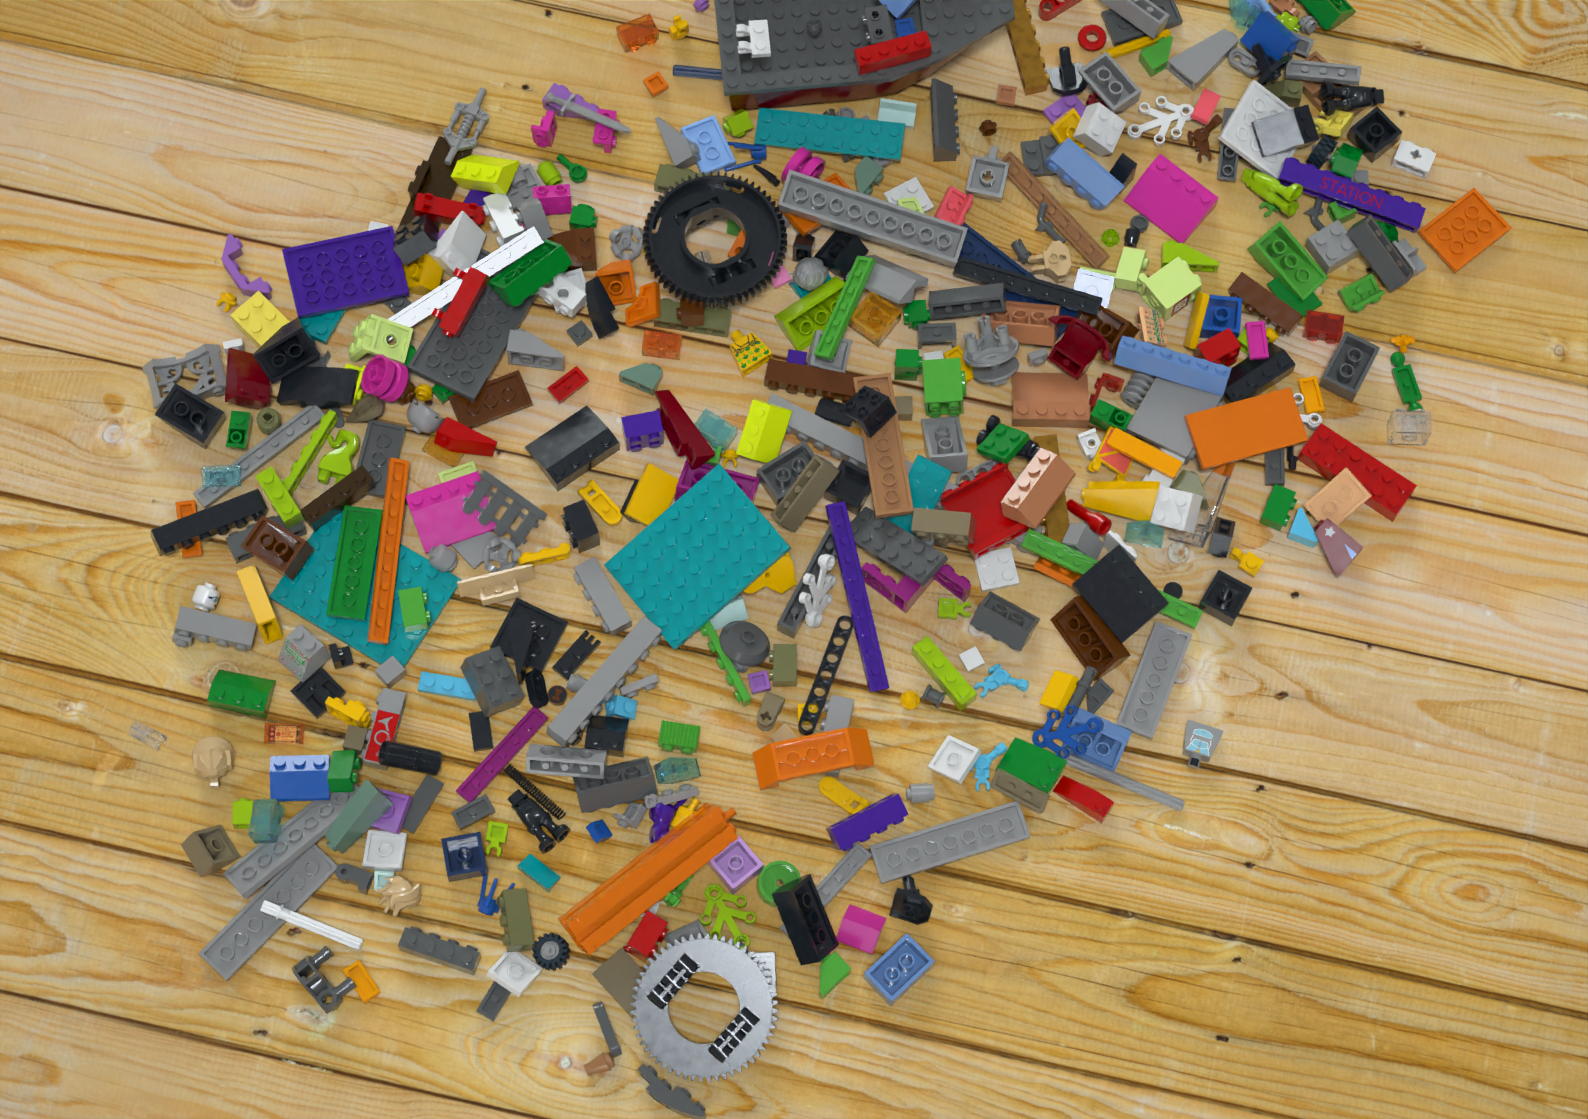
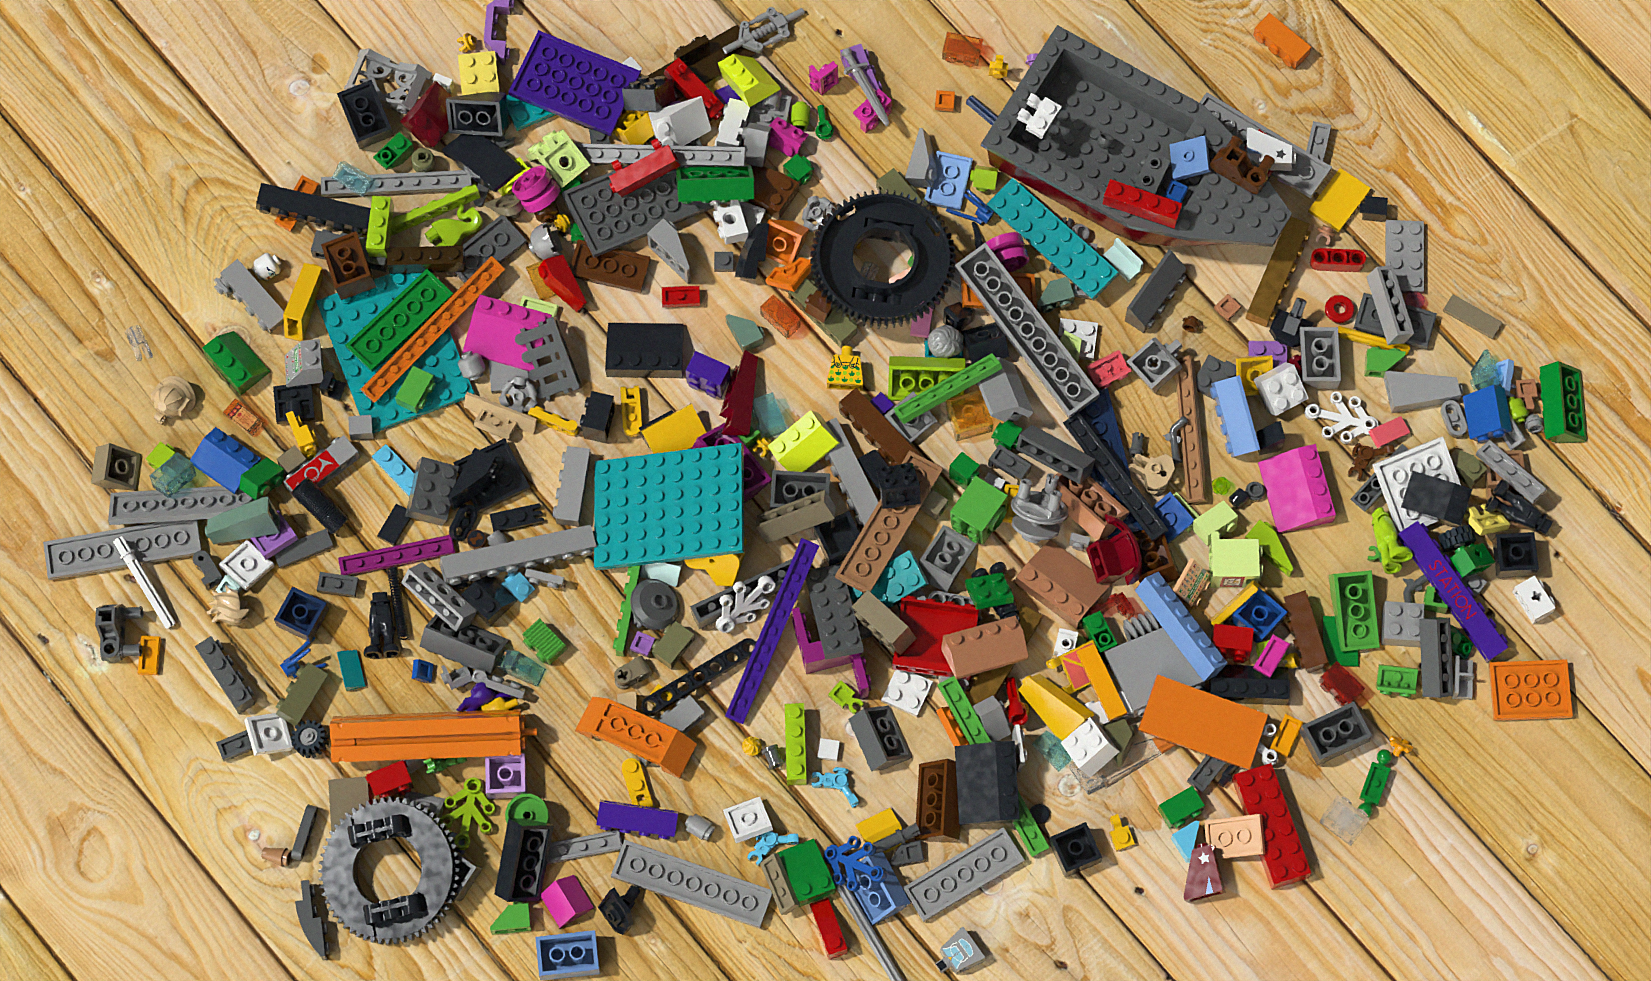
camera: 40 degrees right, 0 degrees up
(496, 835) = (341, 615): lime plate -> none
(1221, 537) = (1114, 798): black slope -> none
(1268, 65) = (1466, 434): black piece -> none

